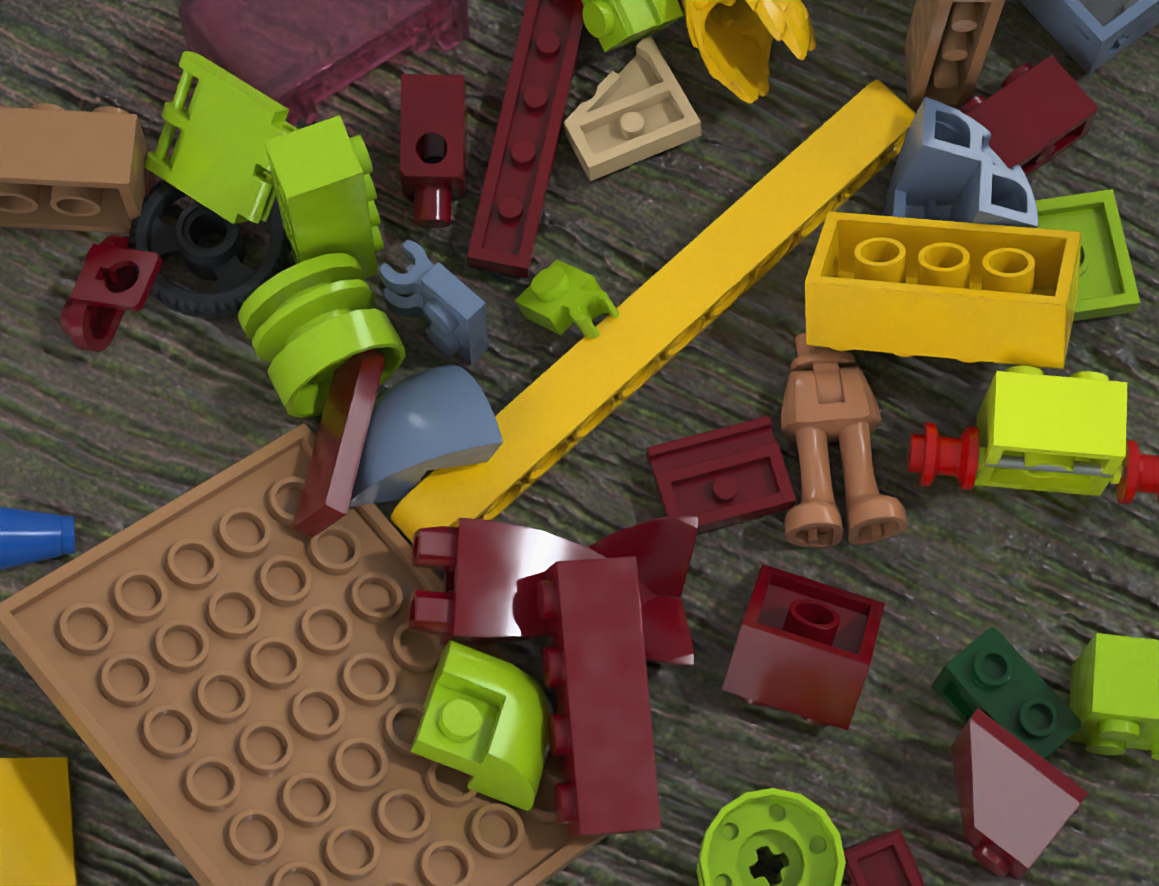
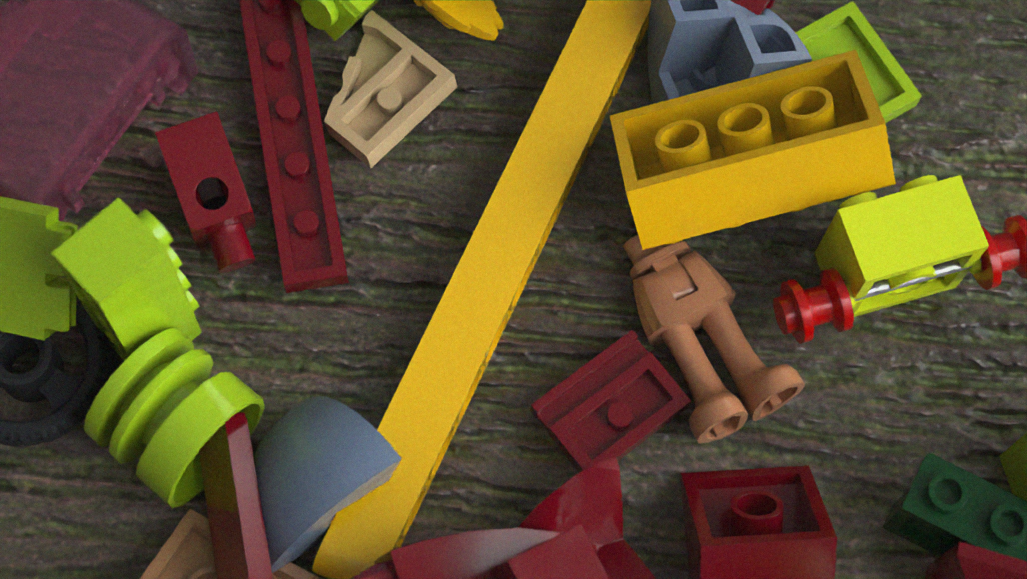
camera: 25 degrees left, 0 degrees up
(450, 309) = (289, 343): sand blue plate -> none
(565, 297) = (393, 288): lime plate -> none

